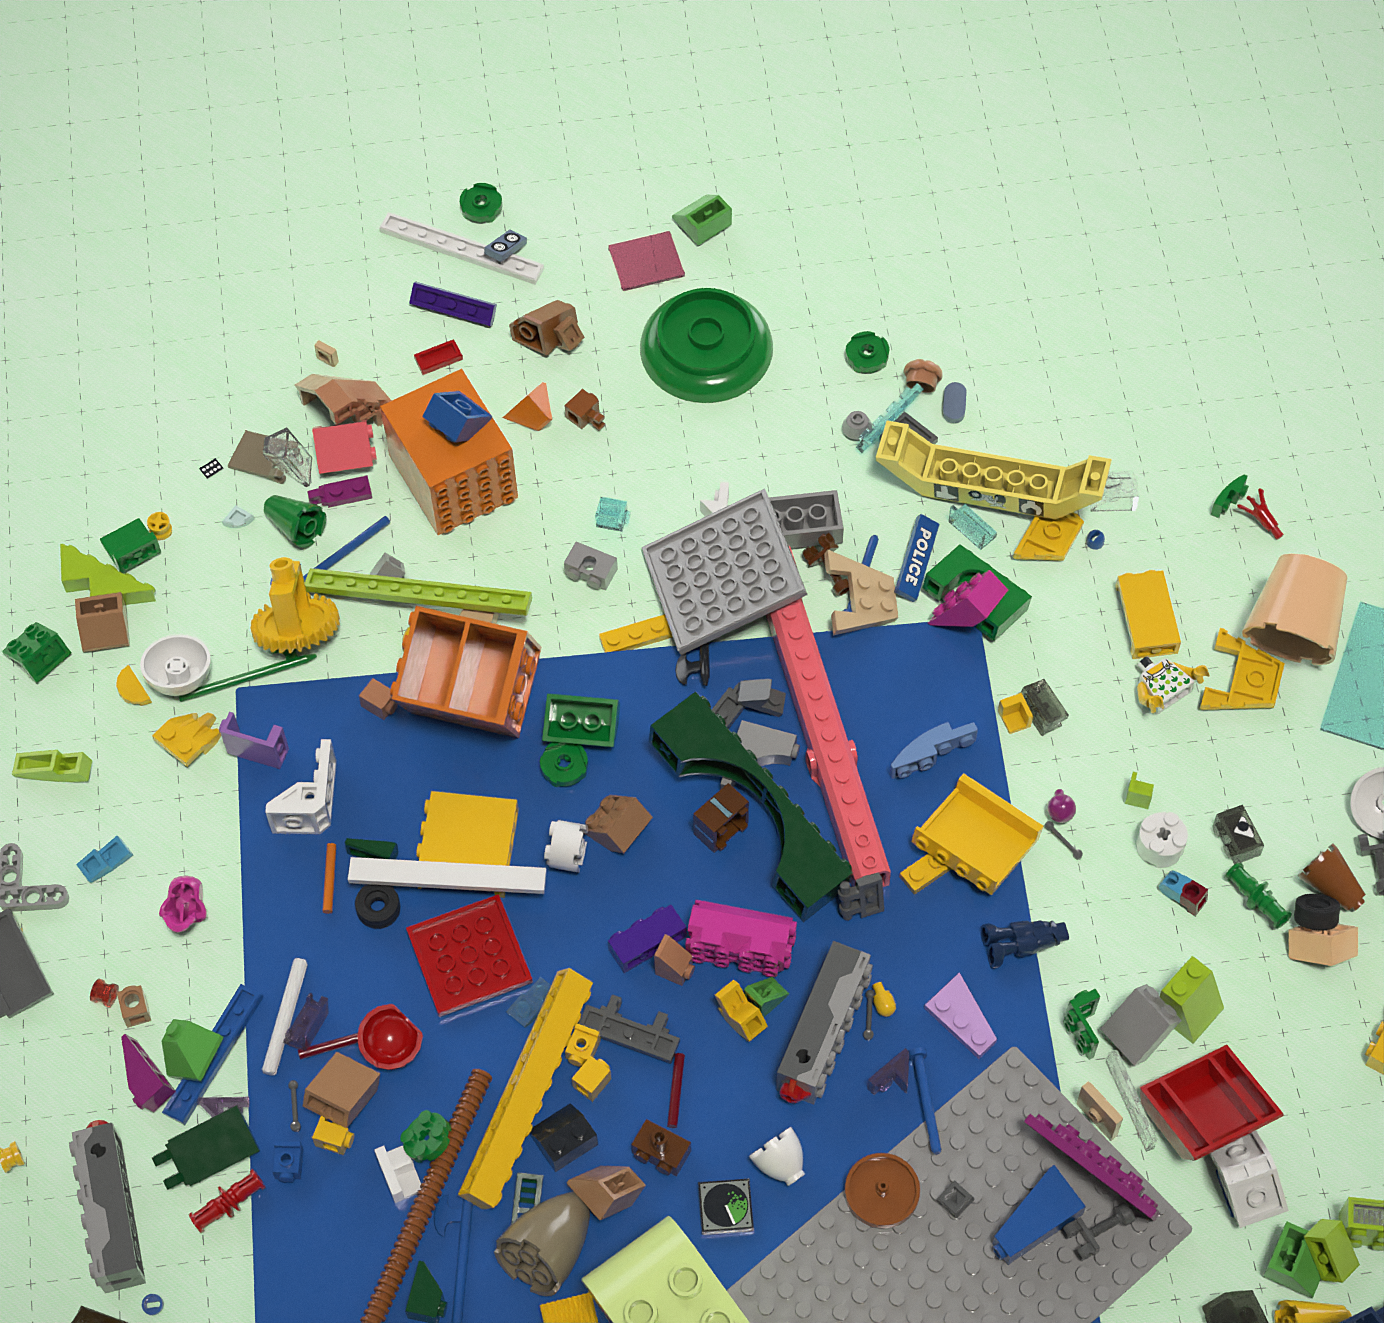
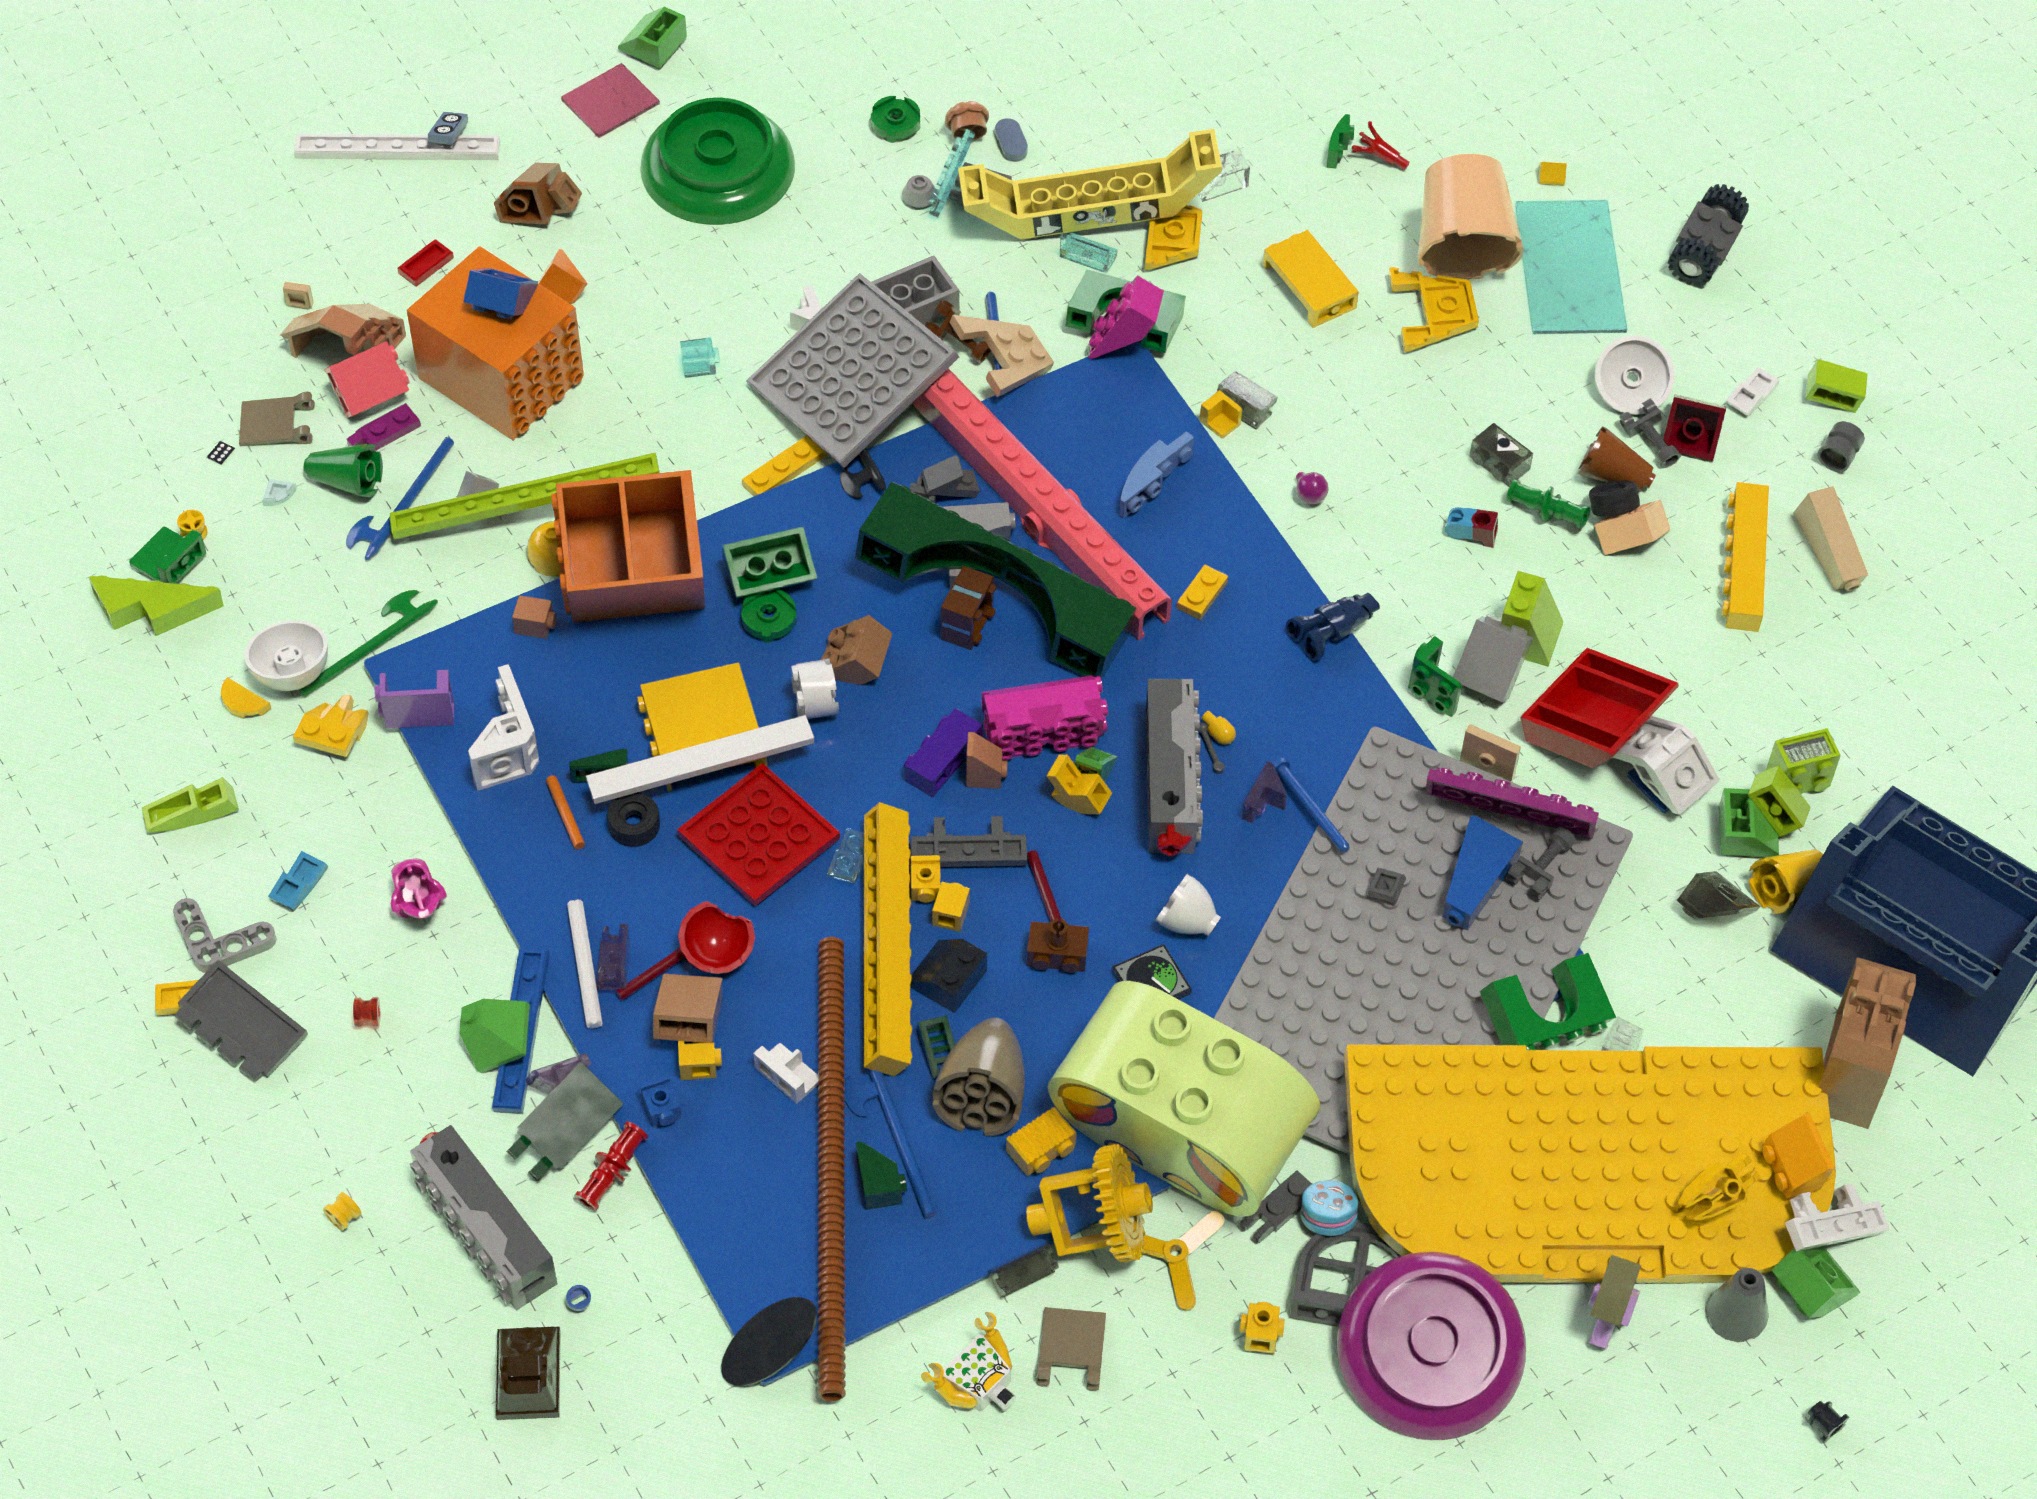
camera: 25 degrees left, 5 degrees down
(37, 650) = (115, 694): green bracket -> none
(102, 622) = (176, 641): medium nougat slope -> none
(138, 1014) = (408, 1023): medium nougat brick -> none
(144, 1077) = (461, 1081): magenta slope -> none
(288, 455) = (307, 407): clear slope -> none
(294, 616) = (401, 568): yellow piece -> none
(295, 1125) = (649, 1067): dark grey hinge -> none
(426, 1124) = (793, 1013): green plate -> none
(453, 303) = (417, 203): dark purple plate -> none
(485, 212) = (392, 105): green plate -> none
(583, 410) = (616, 264): dark orange brick -> none
(586, 557) = (708, 420): light grey brick -> none
(607, 1189) = (1024, 1002): medium nougat slope -> none
(868, 895) = (1158, 630): dark grey plate -> none
(882, 1190) = (1307, 905): dark orange piece -> none
(916, 558) = (1045, 299): blue tile -> none
(962, 1017) = (1307, 717): lavender wing -> none
(978, 834) = (1241, 536): yellow panel -> none
(1077, 853) = (1347, 528): dark grey hinge -> none
(1098, 542) = (1226, 226): blue hinge -> none
(1131, 1100) = (1501, 725): clear tile -> none
(1139, 793) = (1383, 449): lime panel -> none
(1162, 839) = (1427, 483): white brick -> none
(1166, 683) = (1361, 336): torso -> none

